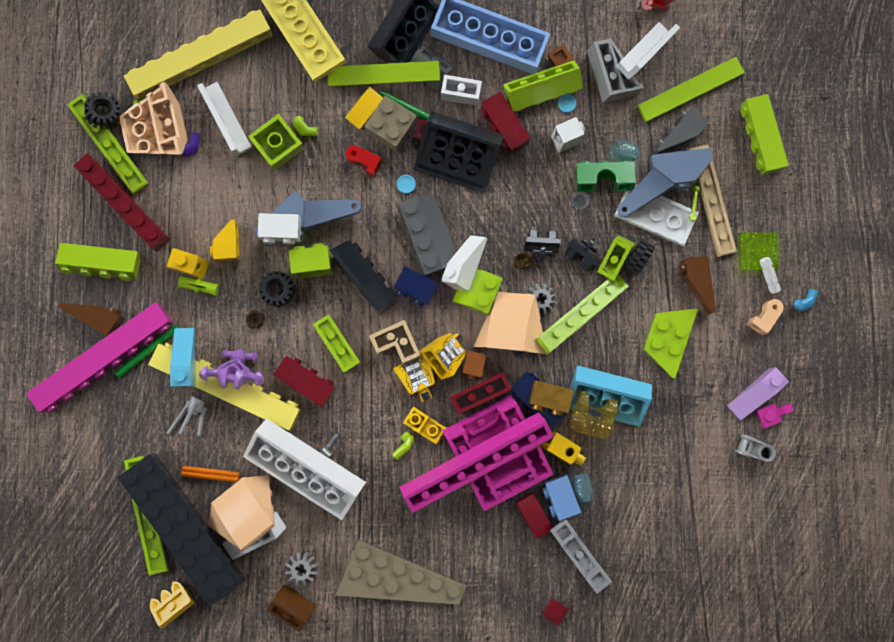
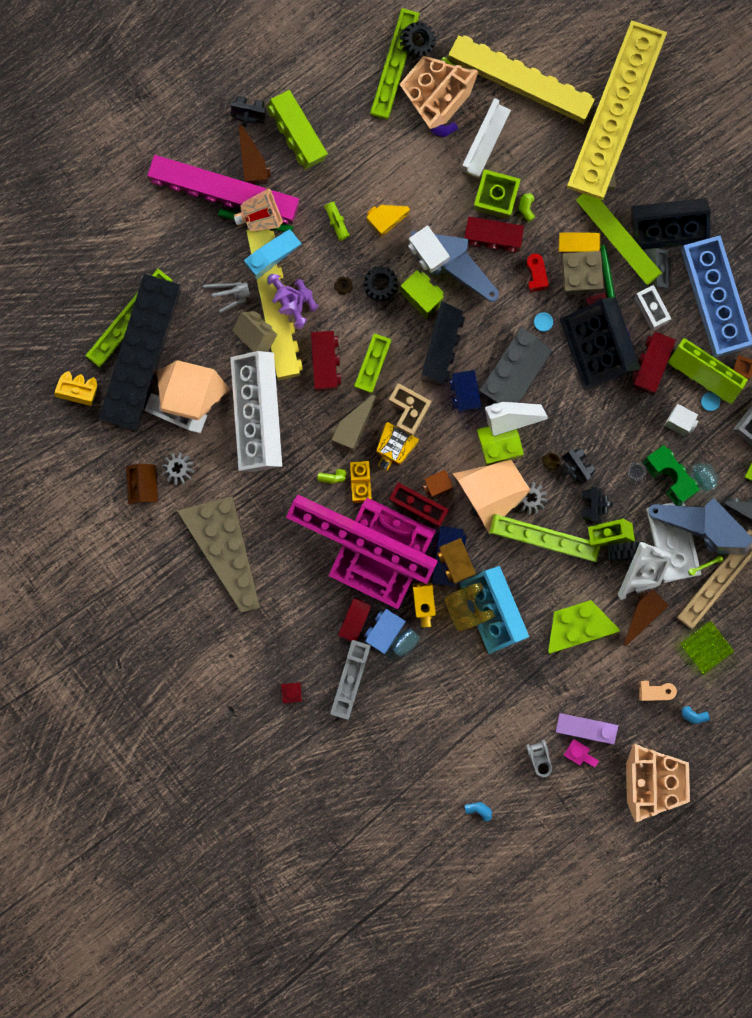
camera: 65 degrees right, 0 degrees up
(53, 290) = (246, 112): none -> black hips
(122, 202) = (357, 111): dark red brick -> none
(141, 342) = (259, 212): none -> light nougat torso
(187, 263) = (347, 199): yellow torso -> none
(211, 474) = (197, 343): orange axle -> none
(237, 421) = (254, 331): none -> dark tan brick
(307, 169) = (494, 234): none -> dark red brick
(325, 451) = (282, 418): flat silver hand -> none
(376, 400) = (352, 426): none -> dark tan slope
(444, 354) = (428, 454): yellow torso -> none
(667, 252) = (645, 570): none -> white wing
(760, 527) = (479, 807): none -> dark azure arm
(770, 275) = (692, 669): white axle -> none
(840, 373) = (655, 782): none -> light nougat wedge

